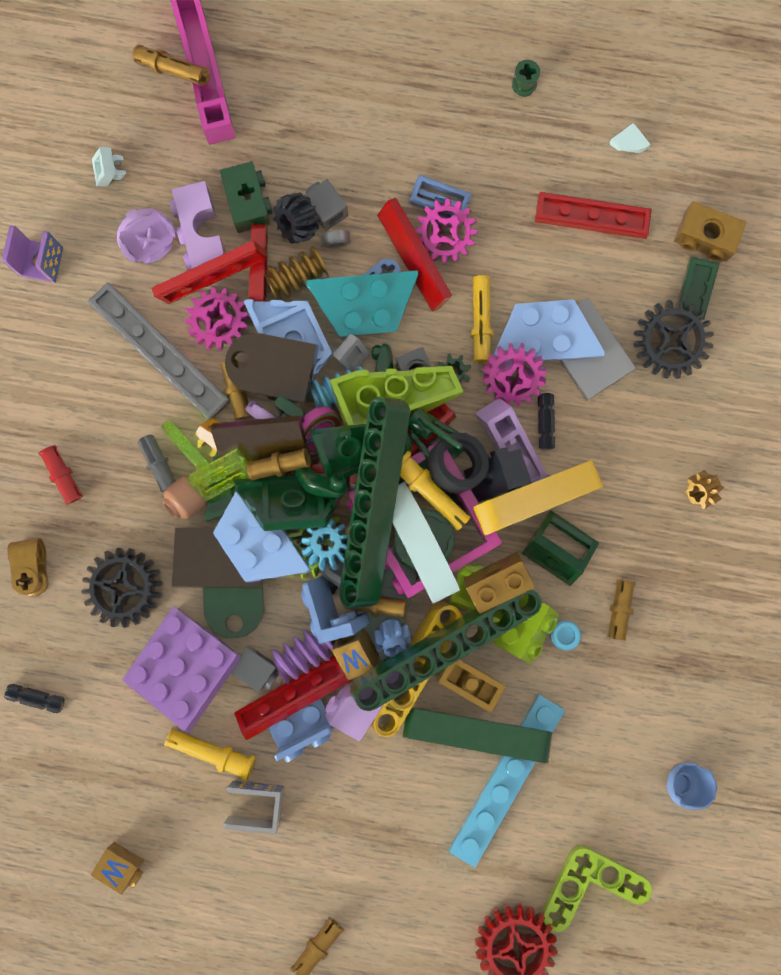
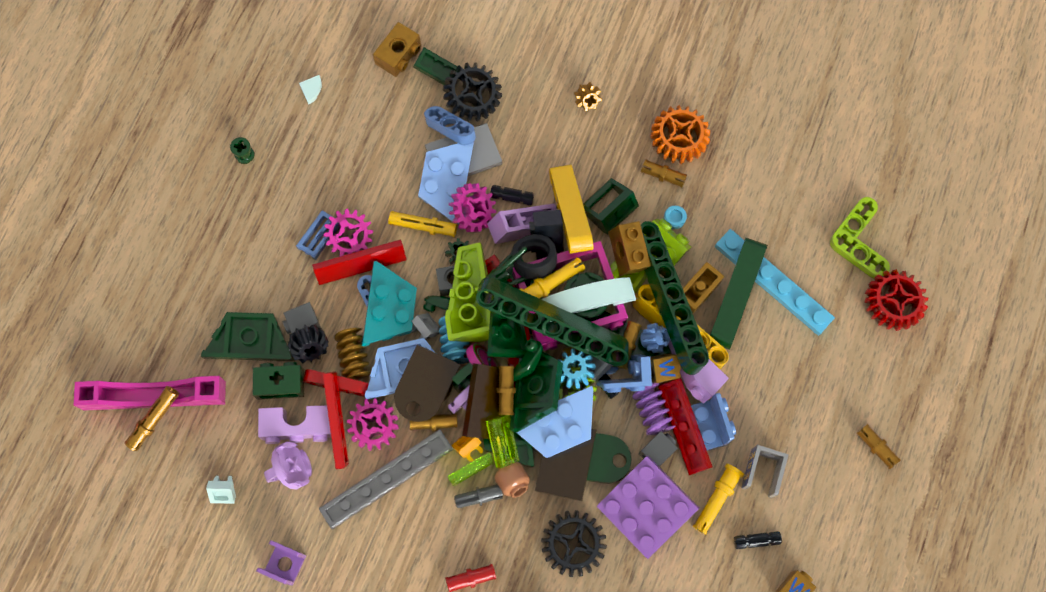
camera: 80 degrees left, 10 degrees down
(171, 811) = (757, 540): none -> black axle
(291, 148) = (248, 338): none -> dark green wing
(336, 238) = (331, 318): flat silver tile -> none
(593, 215) = (361, 128): red tile -> none
(609, 325) = (461, 132): none -> medium blue beam
(672, 630) = (673, 120): none -> orange gear
(691, 786) = (799, 153): medium blue hair -> none

